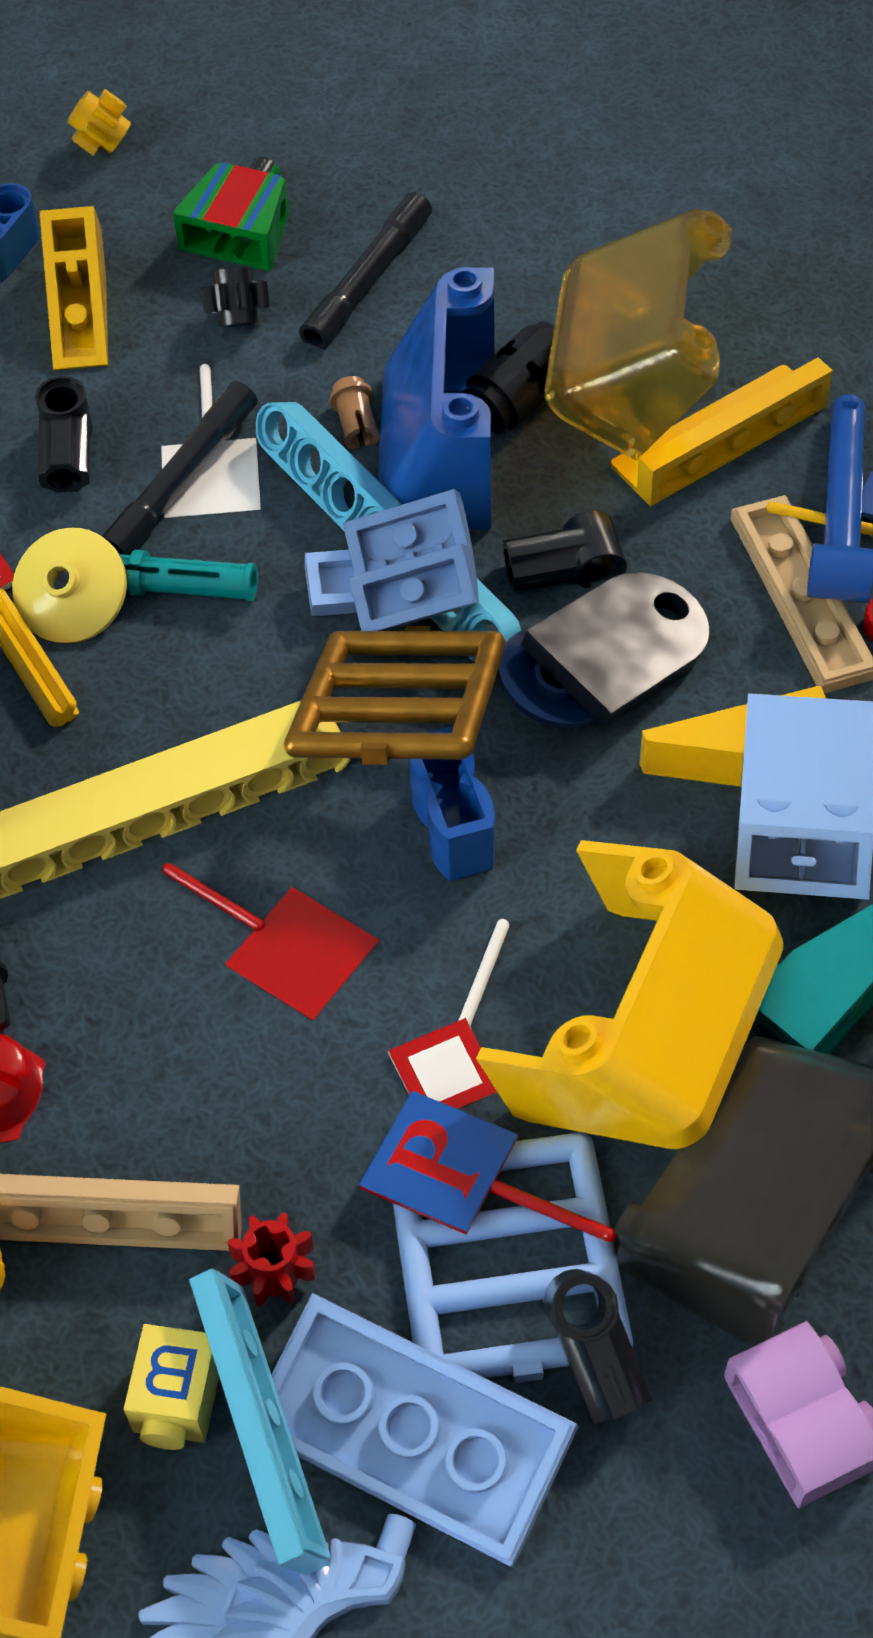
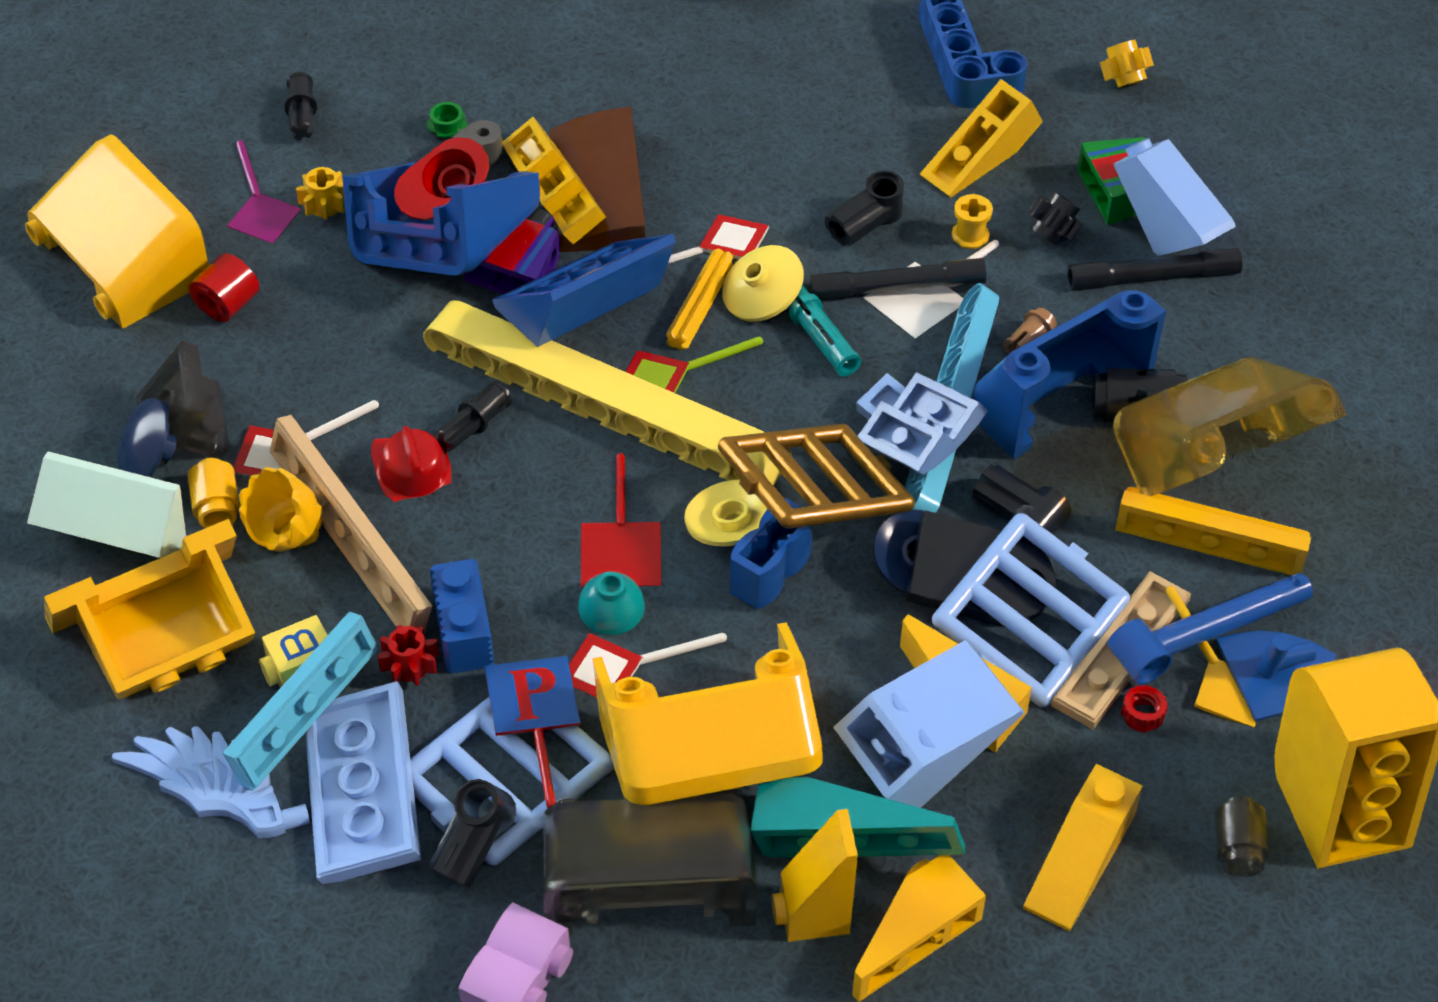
camera: 50 degrees right, 5 degrees down
(95, 749) = (670, 372): none -> lime piece
(169, 356) = (972, 217): none -> yellow bush
(270, 1163) = (461, 616): none -> blue brick
(325, 189) = (1170, 198): none -> light blue slope
(343, 793) = (723, 514): none -> light yellow dish
(368, 1003) = (611, 603): none -> teal brick
(654, 659) = (998, 557): none -> light blue bar

